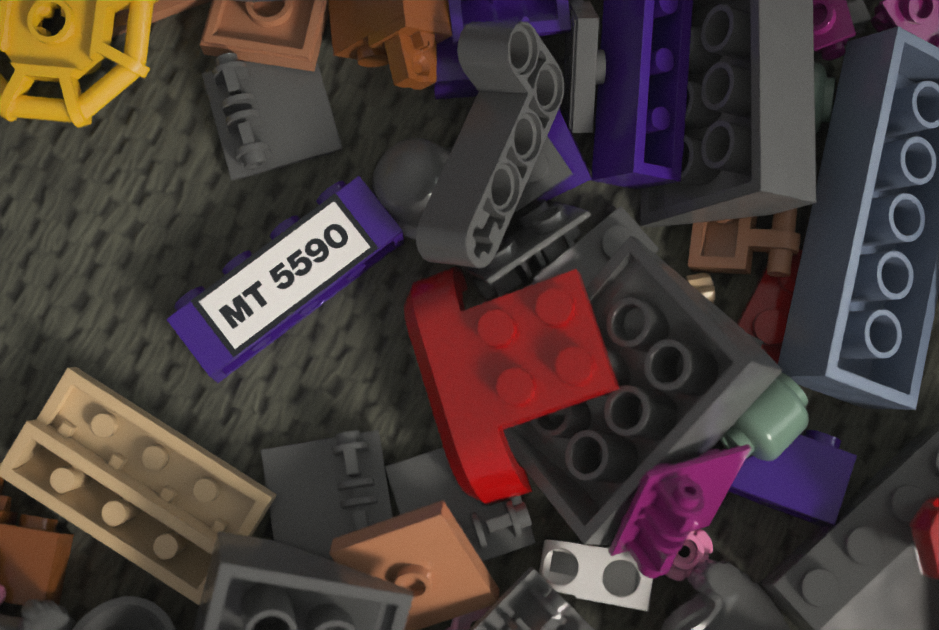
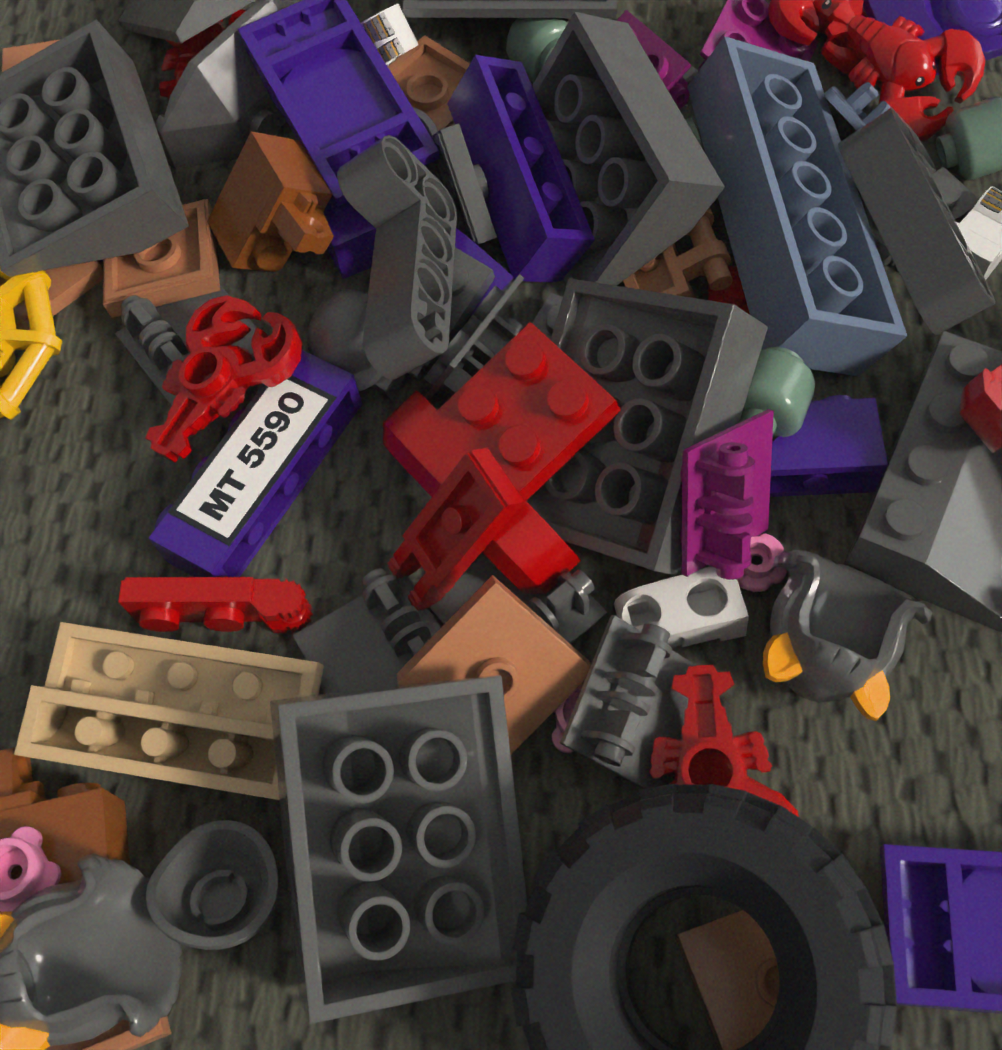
camera: 10 degrees left, 15 degrees down
(209, 398) = (217, 601): none -> red hinge
(282, 179) = (218, 374): none -> red animal
(433, 436) = (455, 526): none -> red hinge

